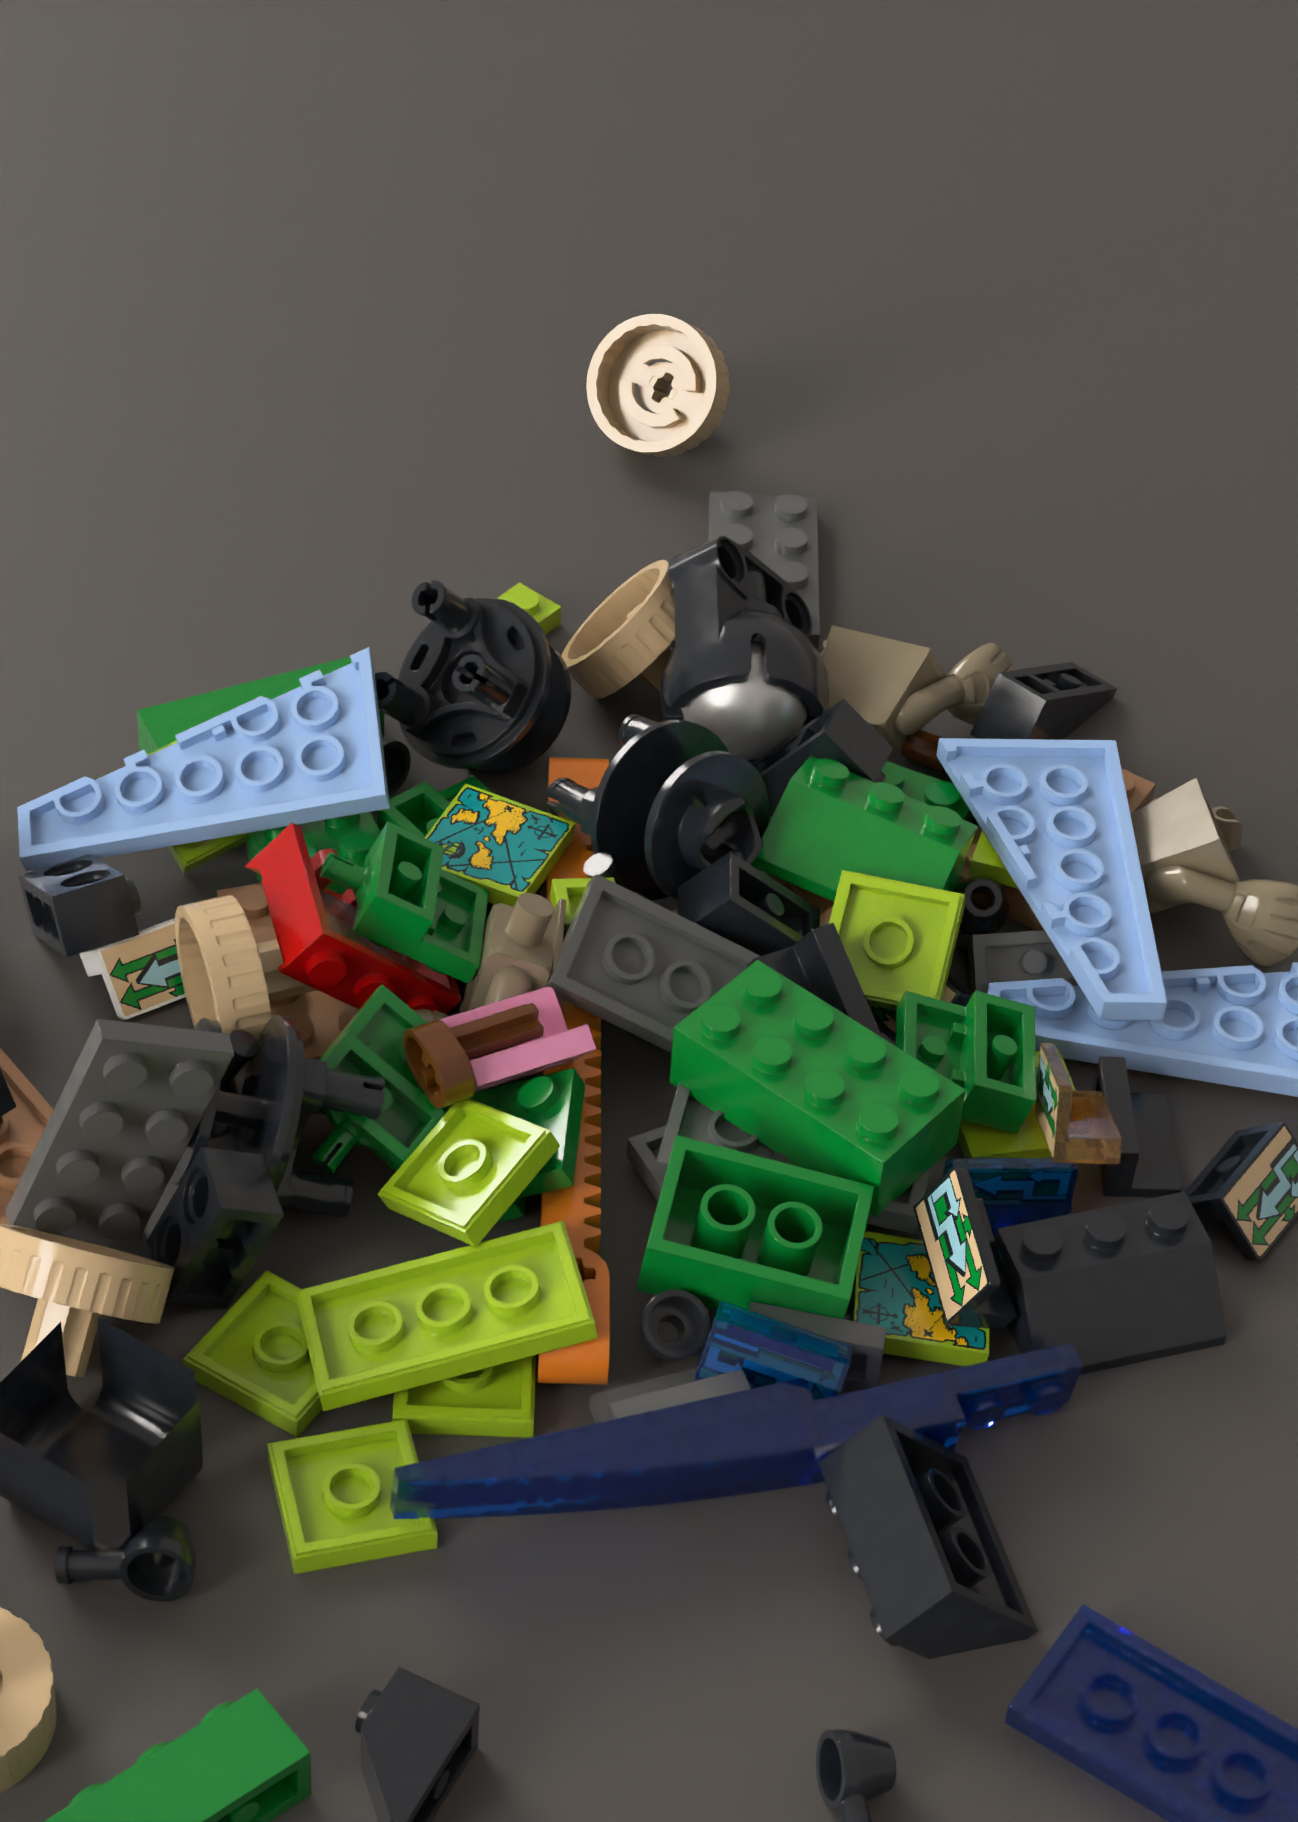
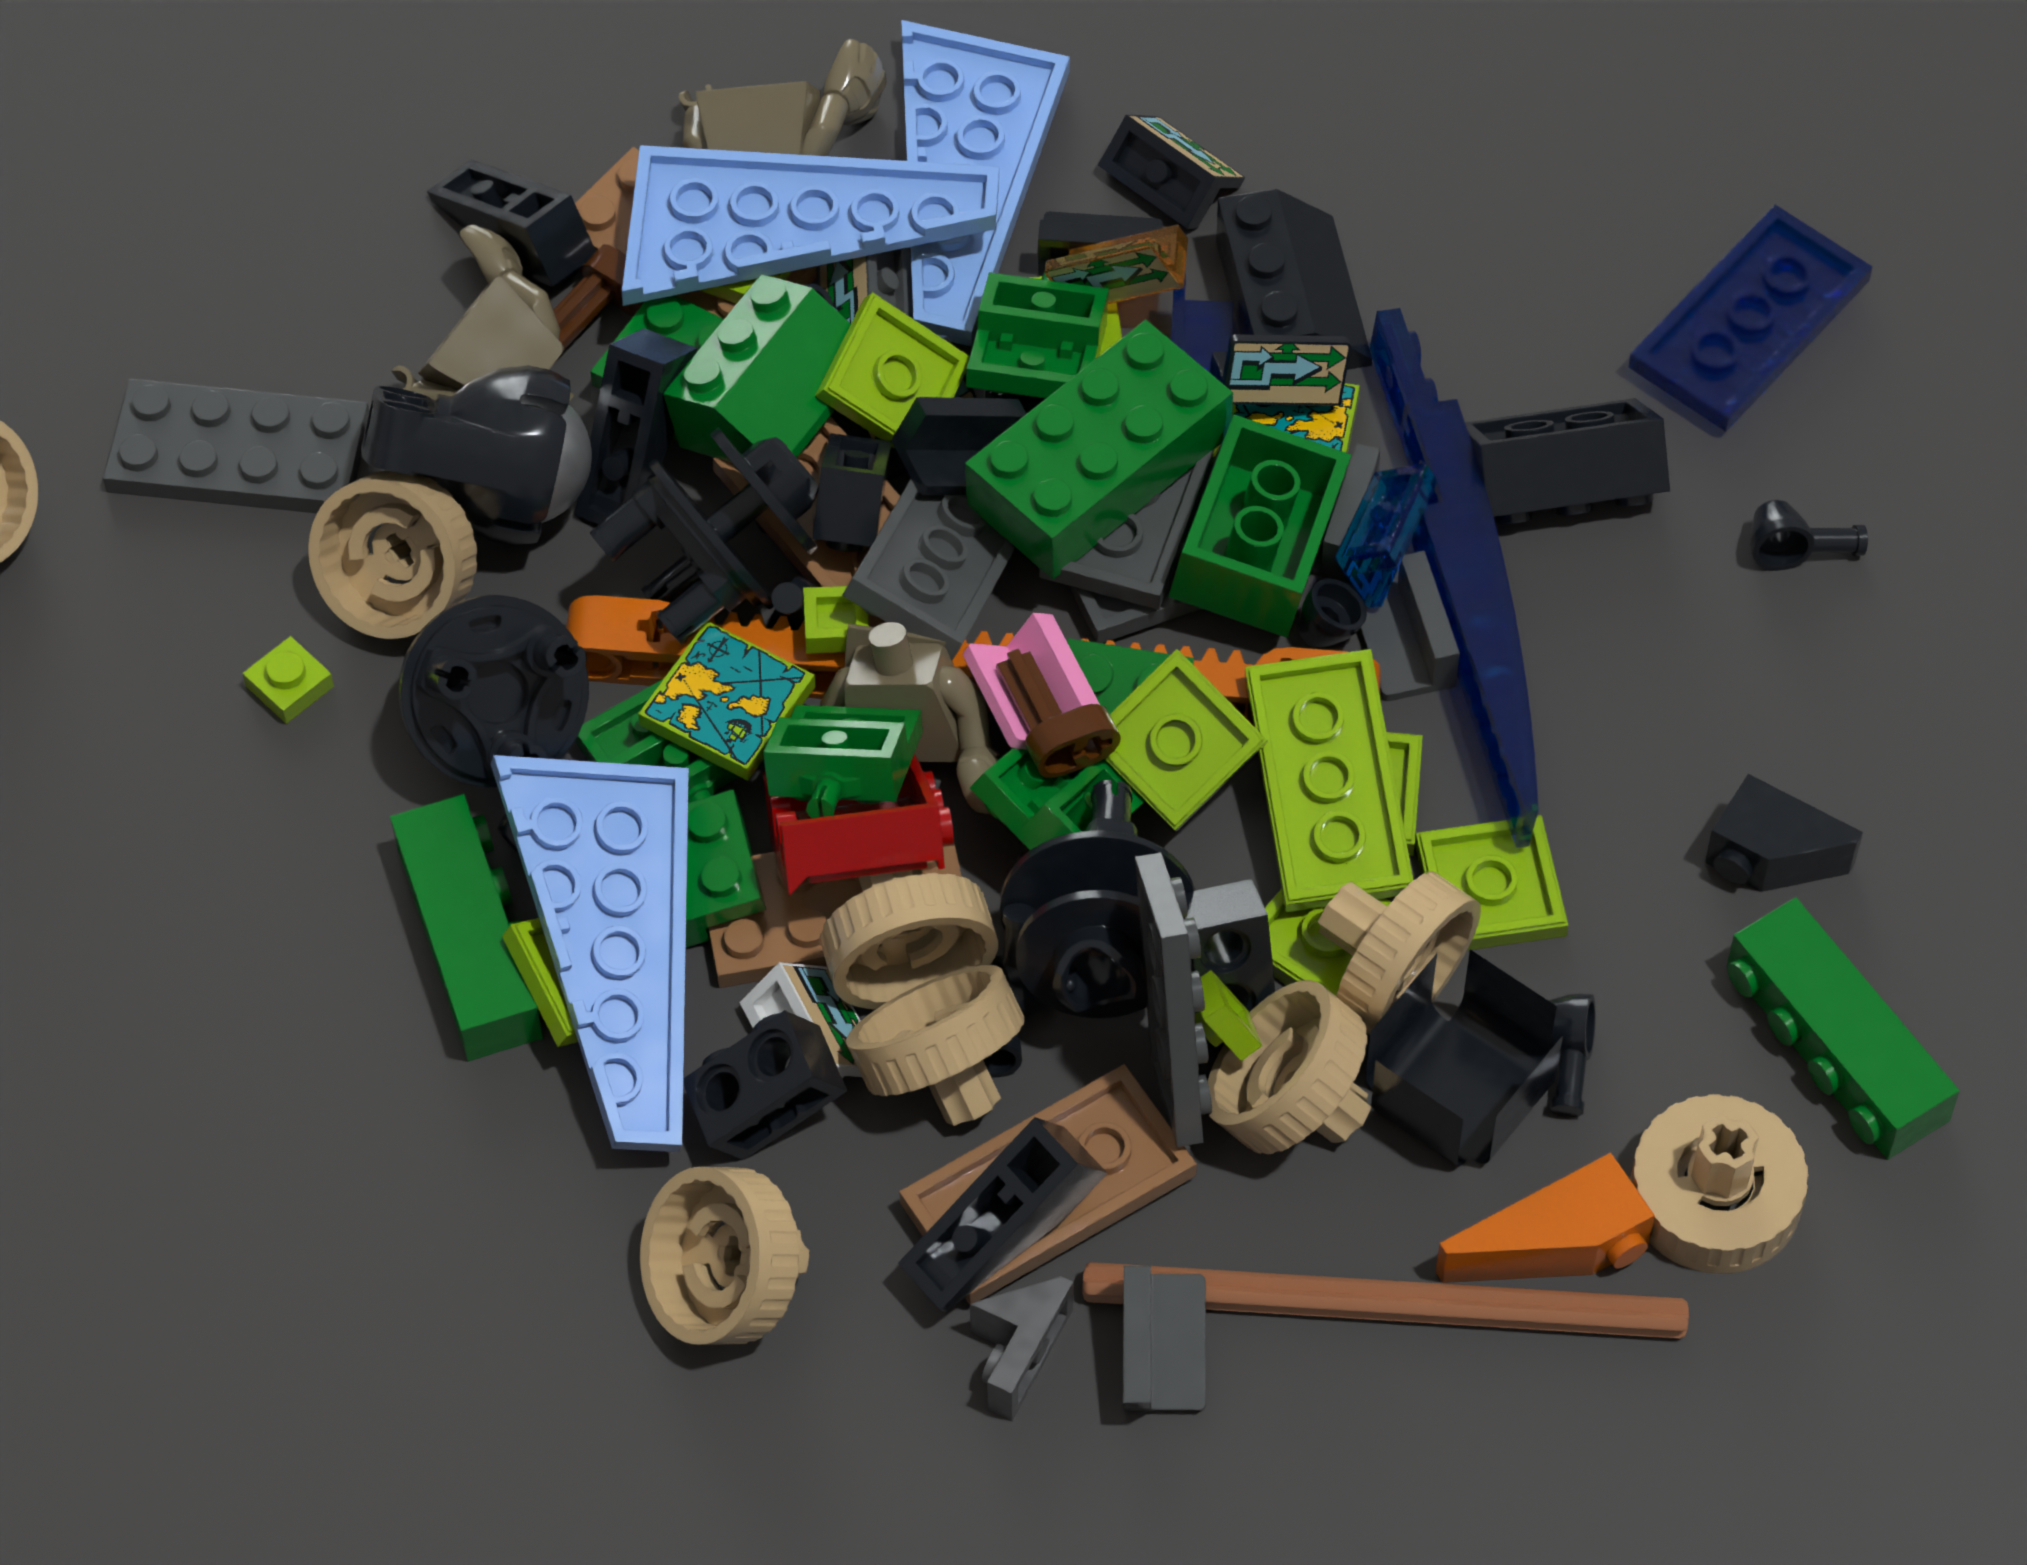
camera: 80 degrees left, 15 degrees up
(102, 982) = (940, 1040): none -> tan piece
(137, 1220) = (1226, 1018): none -> lime plate
(237, 1357) = (1398, 940): none -> tan piece

